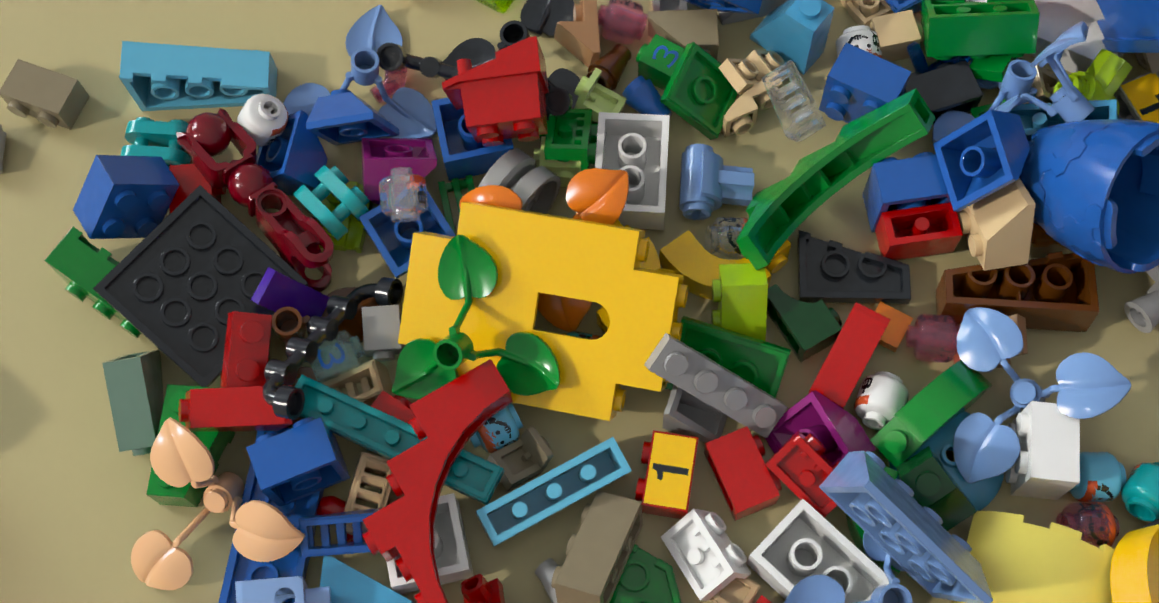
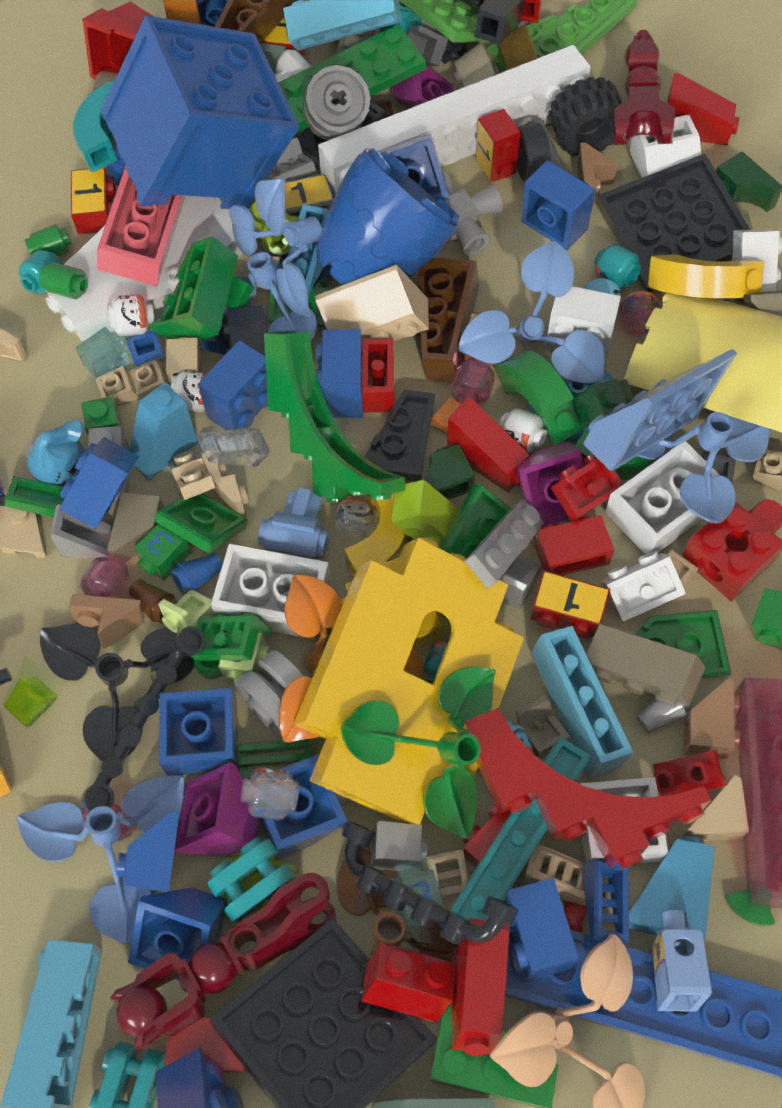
camera: 85 degrees left, 5 degrees down
(263, 118) = (133, 948): white head -> none
(282, 291) = (351, 934): dark purple tile -> none
(503, 95) = (191, 670): red piece -> none
(982, 157) = (346, 296): blue slope -> none

